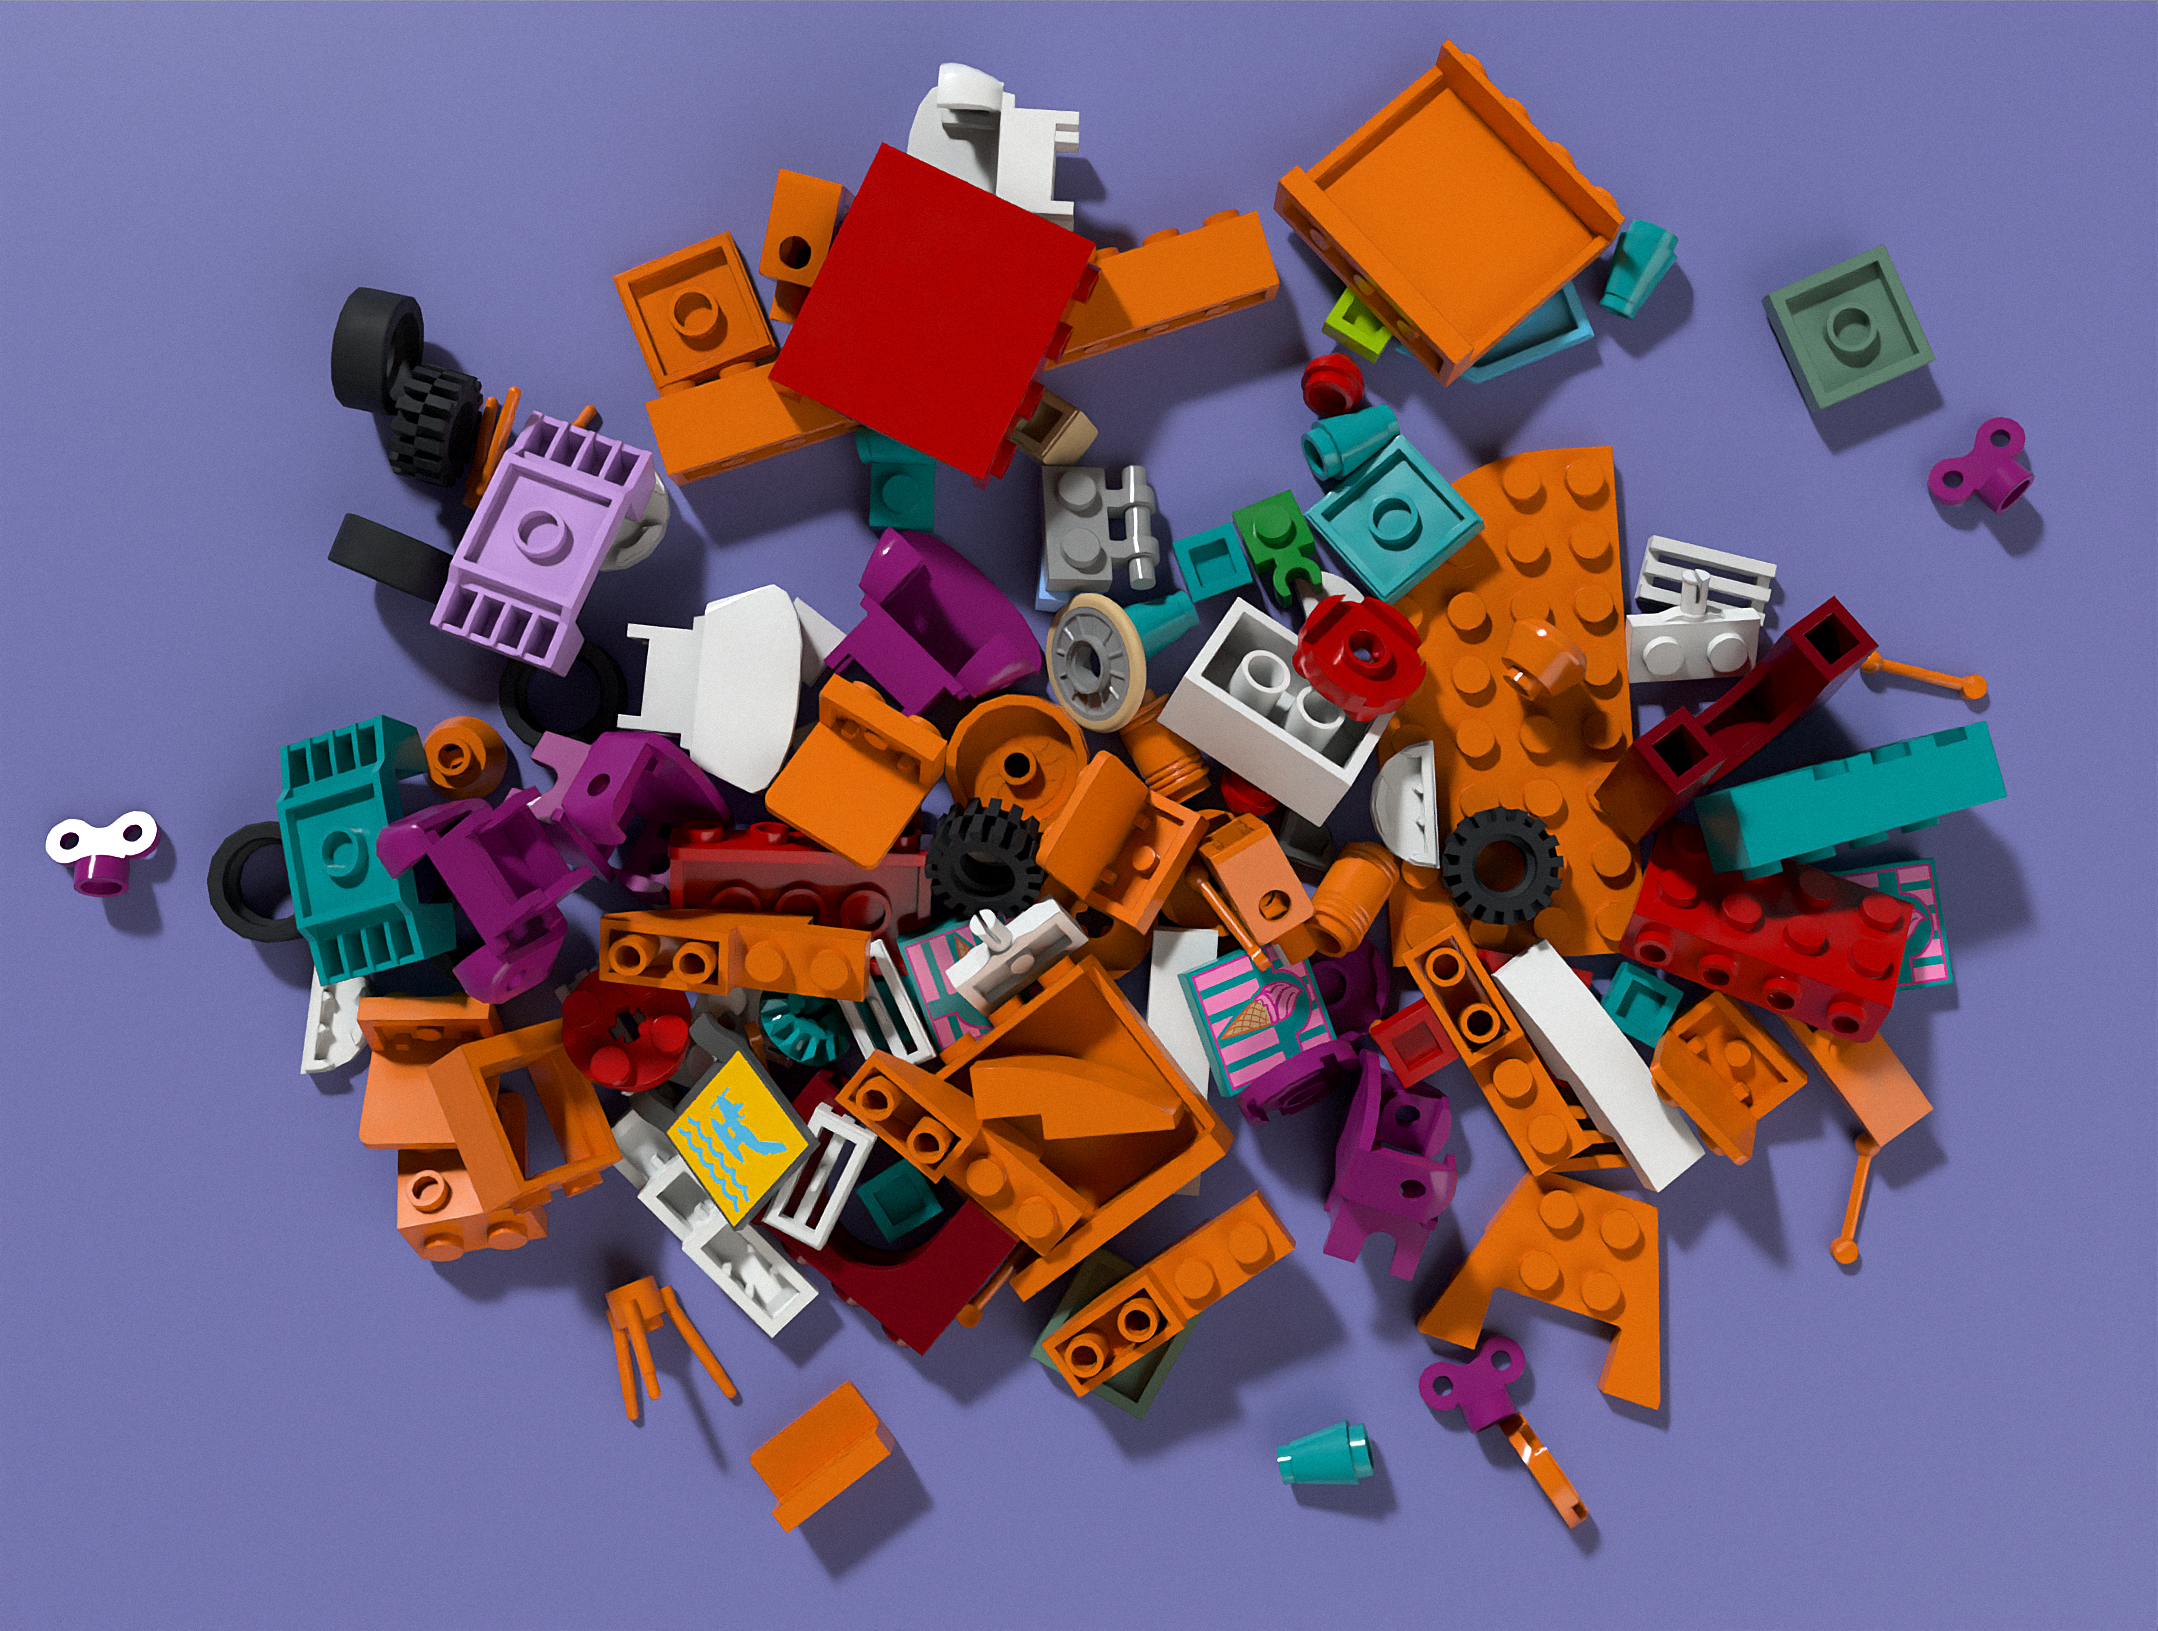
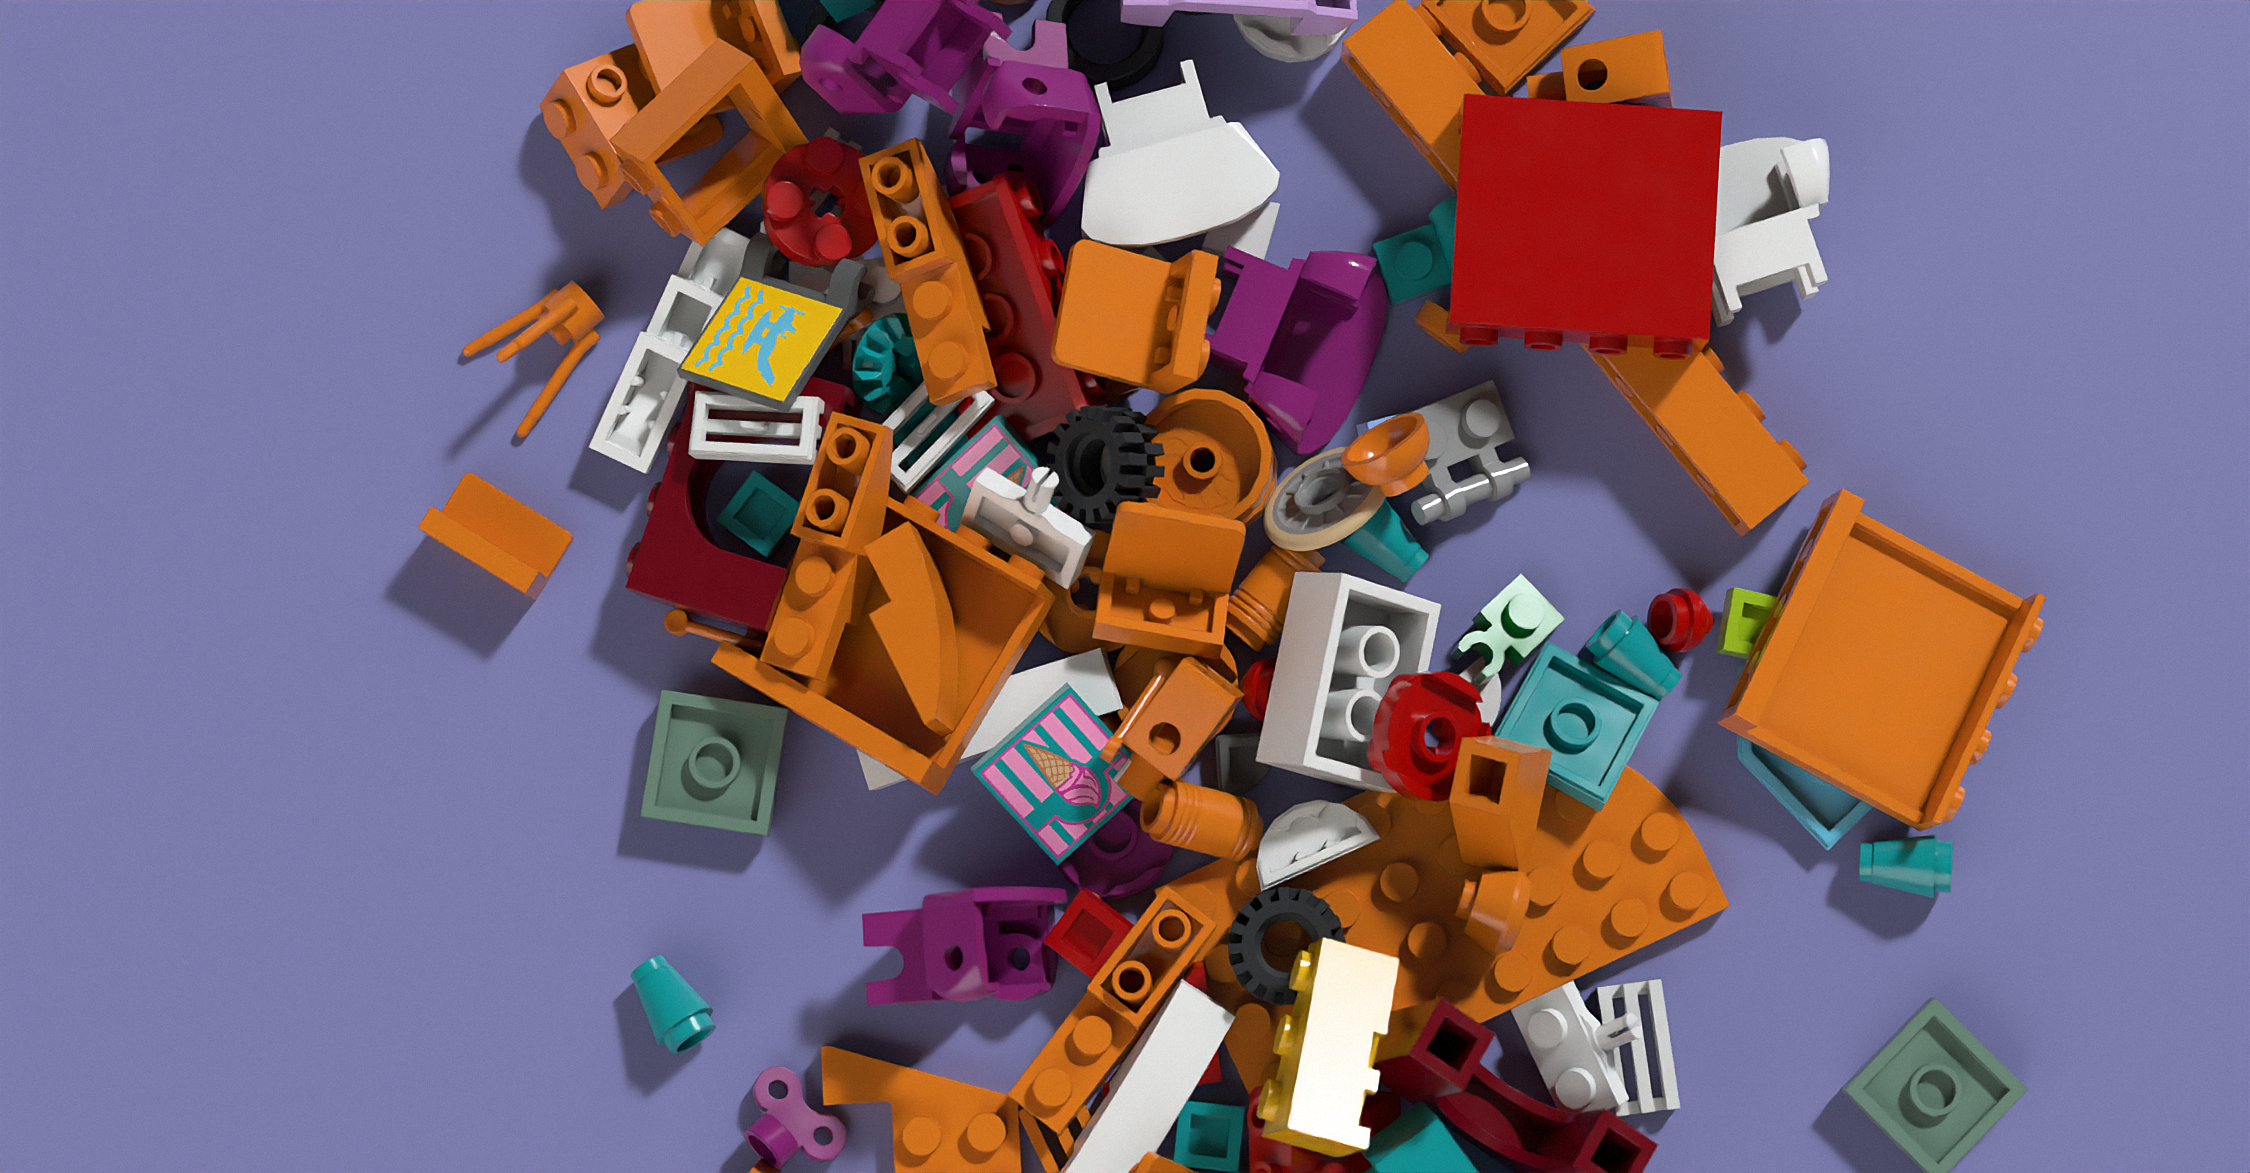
camera: 75 degrees right, 5 degrees down
(967, 497) = (1432, 321): none -> orange tile
(1055, 434) = (1530, 379): tan slope -> none
(1083, 586) = (1390, 454): none -> orange piece
(1167, 1292) = (770, 788): orange slope -> none
(1212, 563) = (1465, 572): teal plate -> none
(1298, 1081) = (1011, 835): magenta tile -> none
(1445, 615) = (1498, 801): none -> orange slope
(1631, 867) = (1329, 1048): none -> wedge

